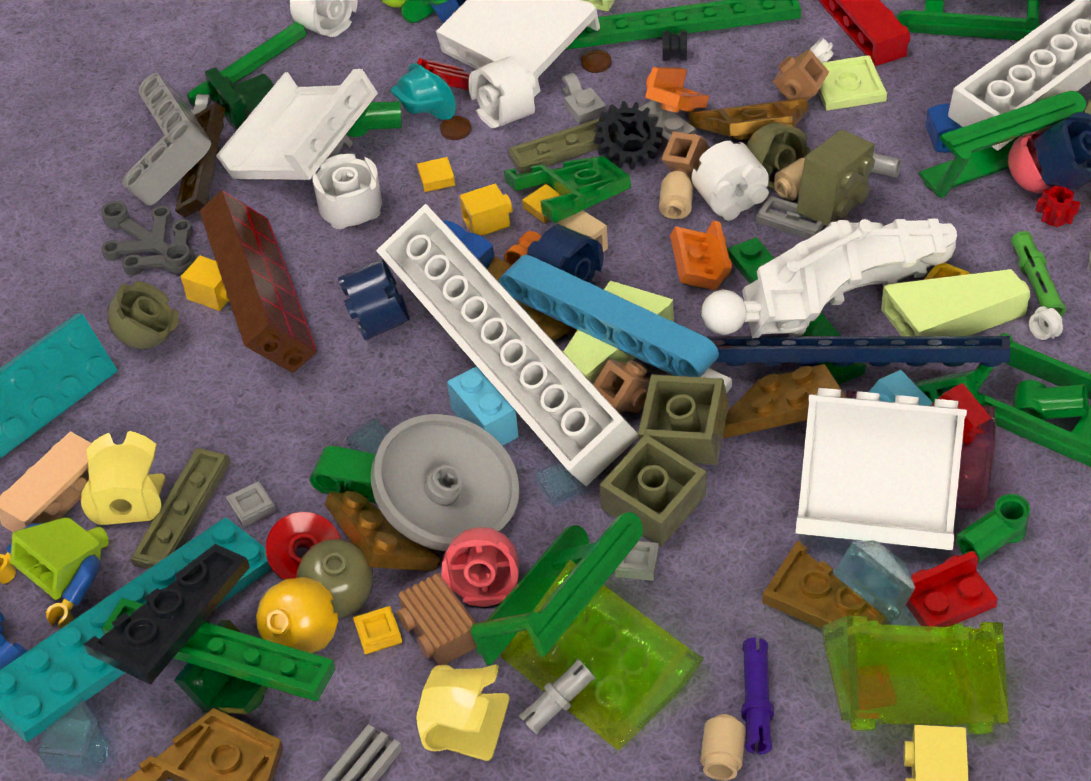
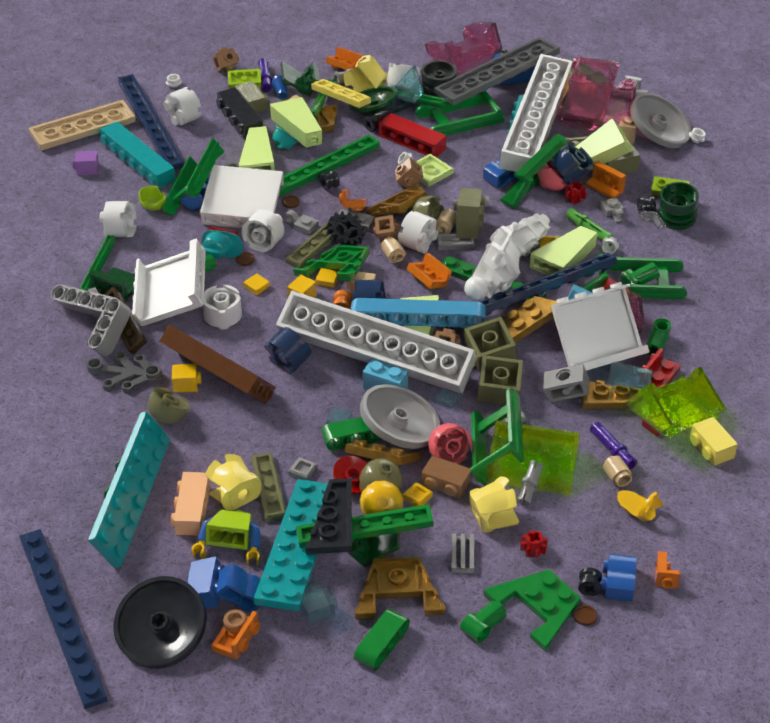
camera: 35 degrees left, 5 degrees down
(759, 544) = (566, 383): none -> light grey brick

